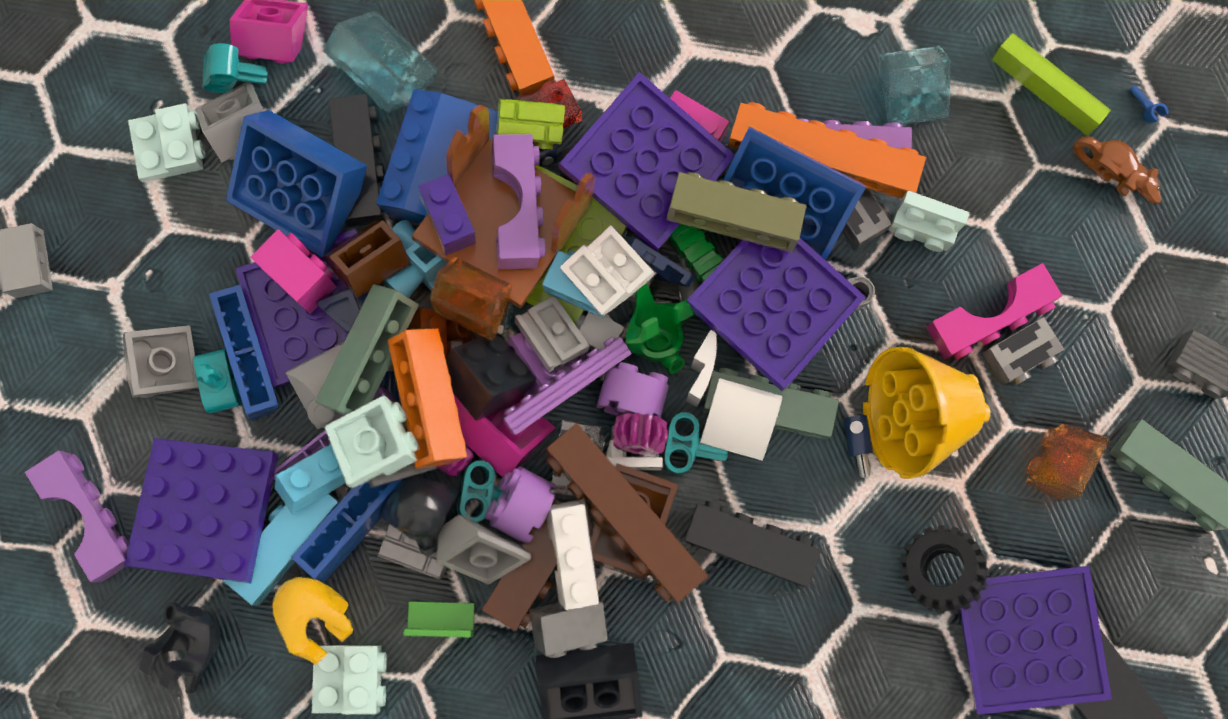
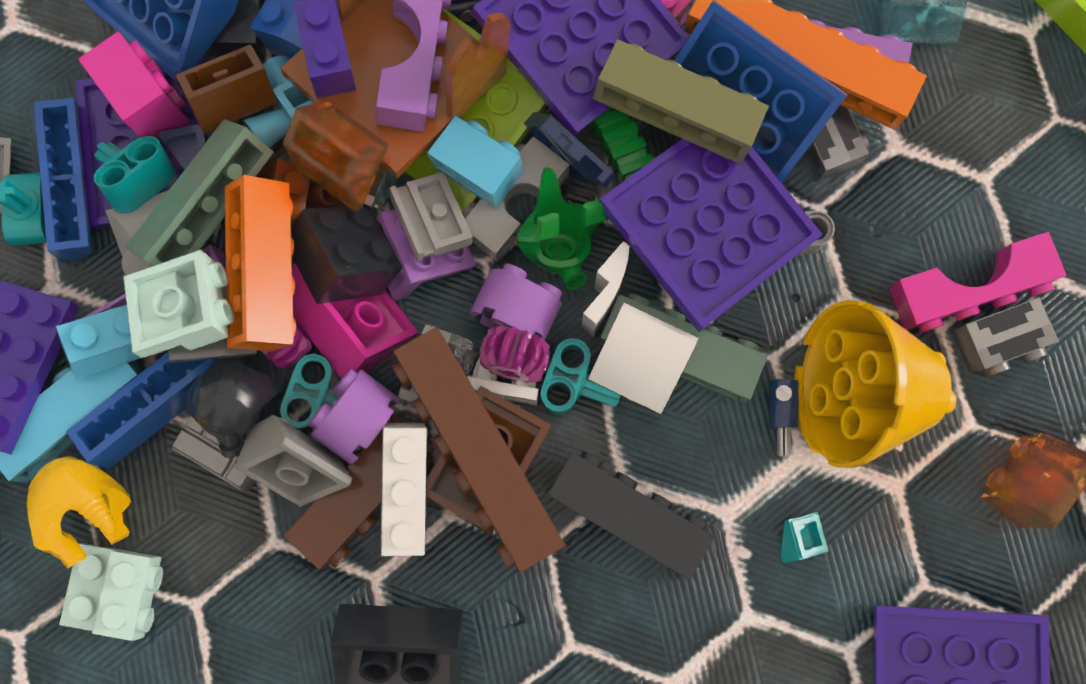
camera: 15 degrees right, 0 degrees up
(304, 339) = (132, 174): none -> teal beam
(440, 619) = (236, 539): bright green panel -> none
(563, 630) = (384, 580): flat silver brick -> none
(565, 385) = (435, 279): medium lavender piece -> none
(607, 270) = (509, 148): white slope -> none
(890, 539) = (803, 538): none -> teal slope
(927, 221) = (914, 156): light aqua plate -> none
(940, 542) = (869, 553): black tyre -> none

